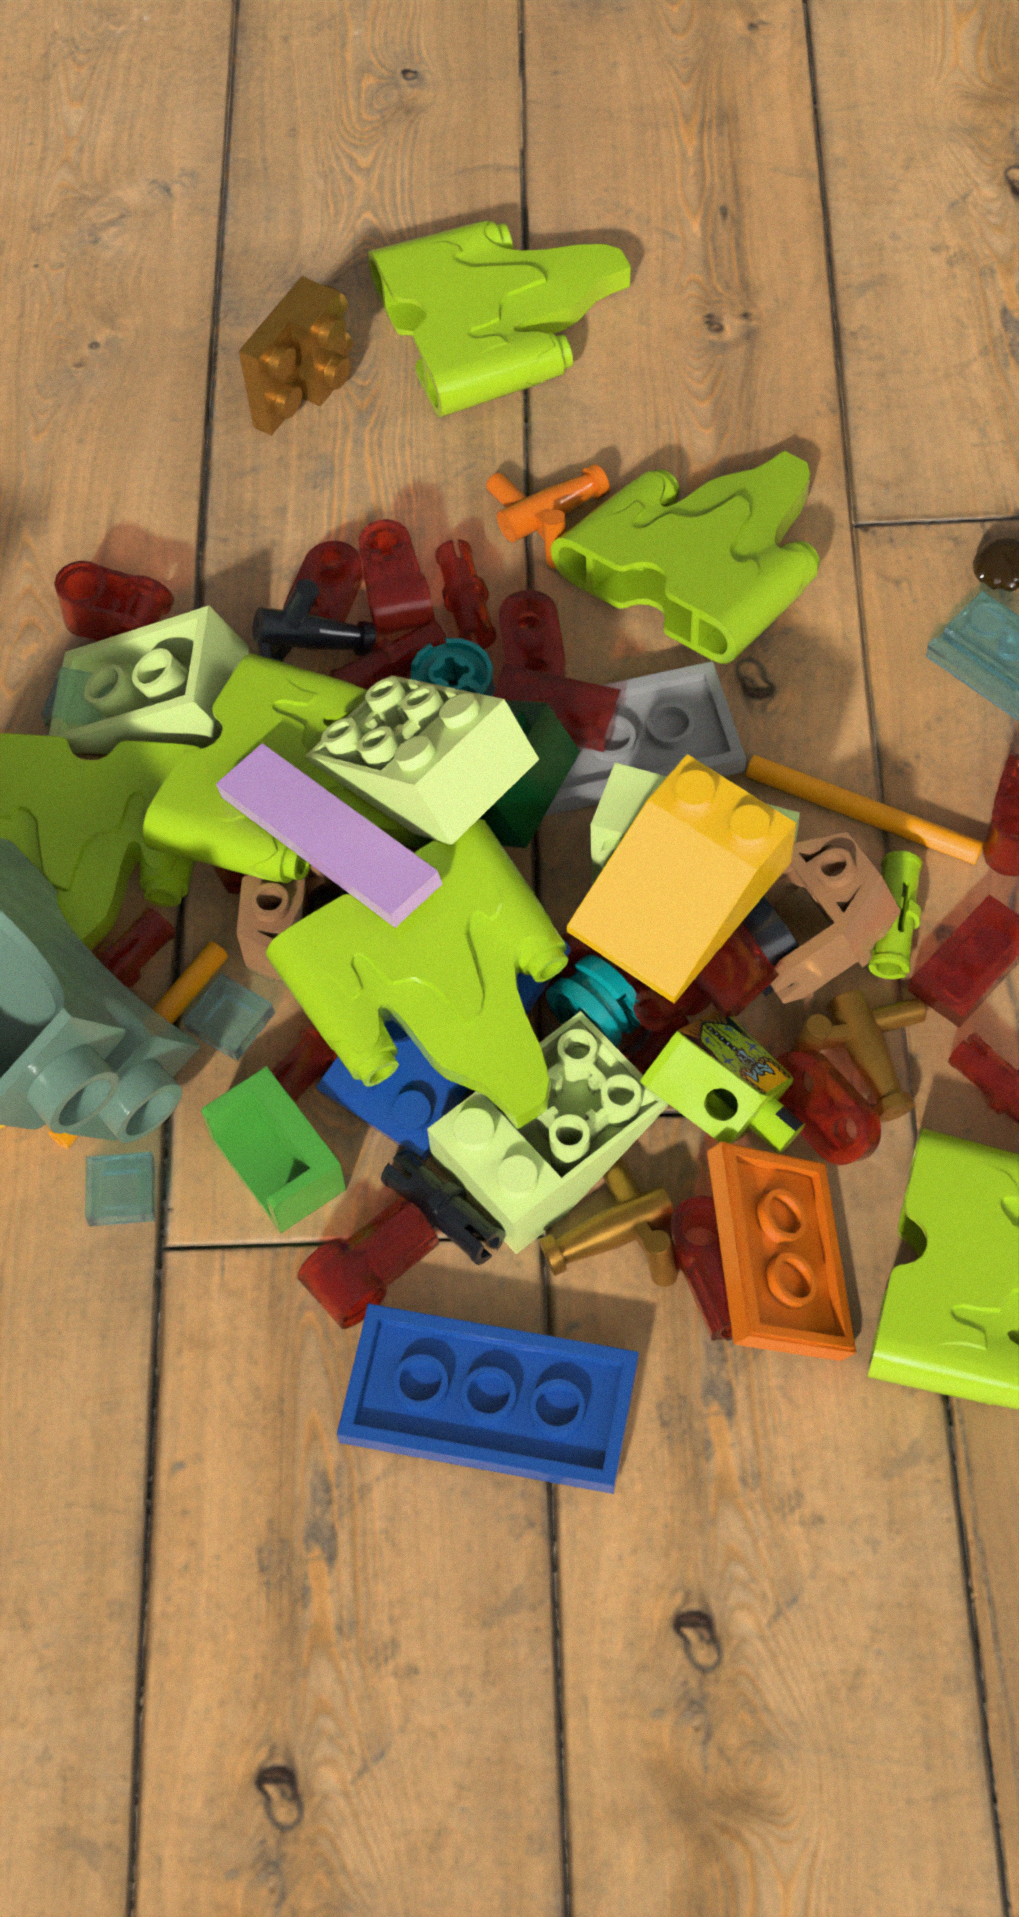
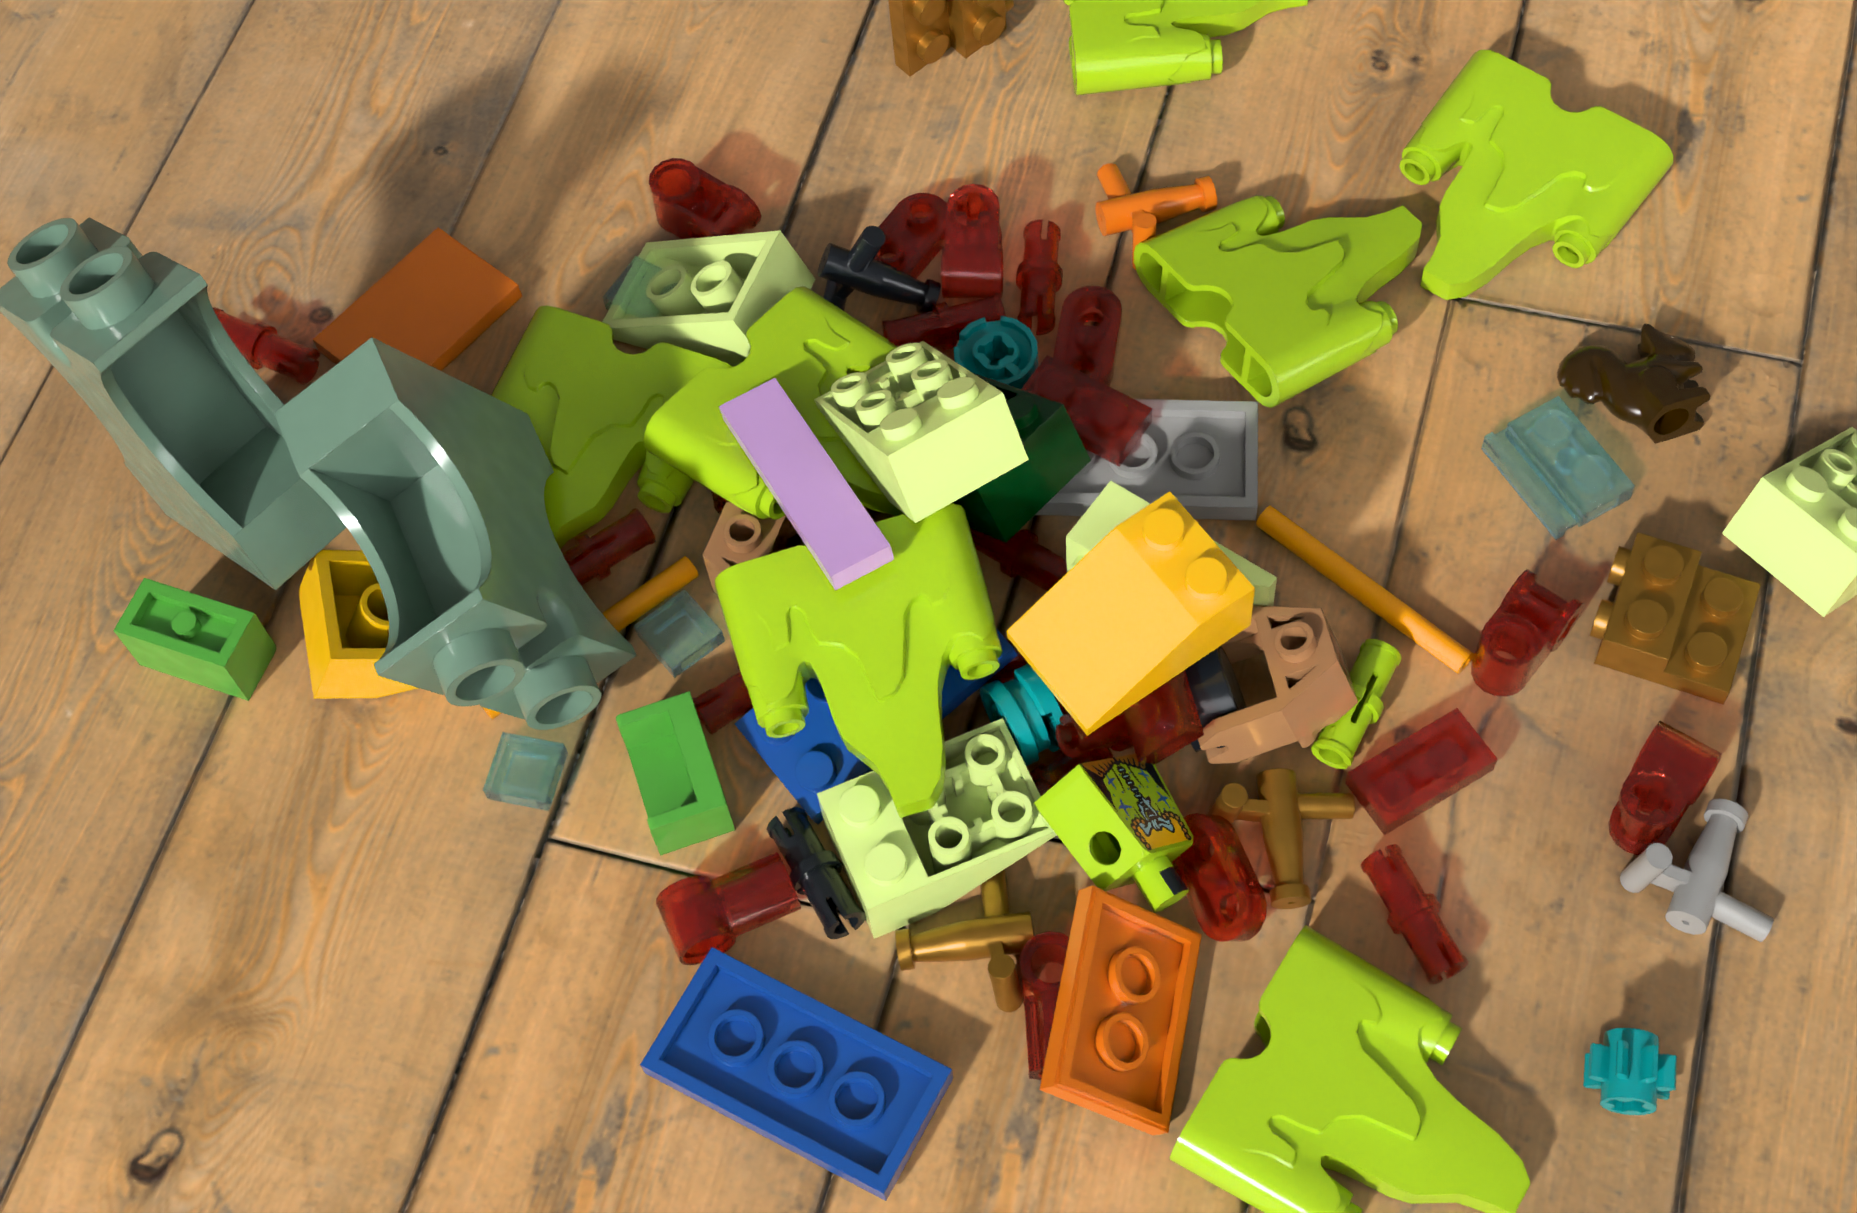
camera: 20 degrees right, 0 degrees up
(552, 863) = (1023, 557): none -> clear red pin
(884, 395) = (1524, 174): none -> lime rock

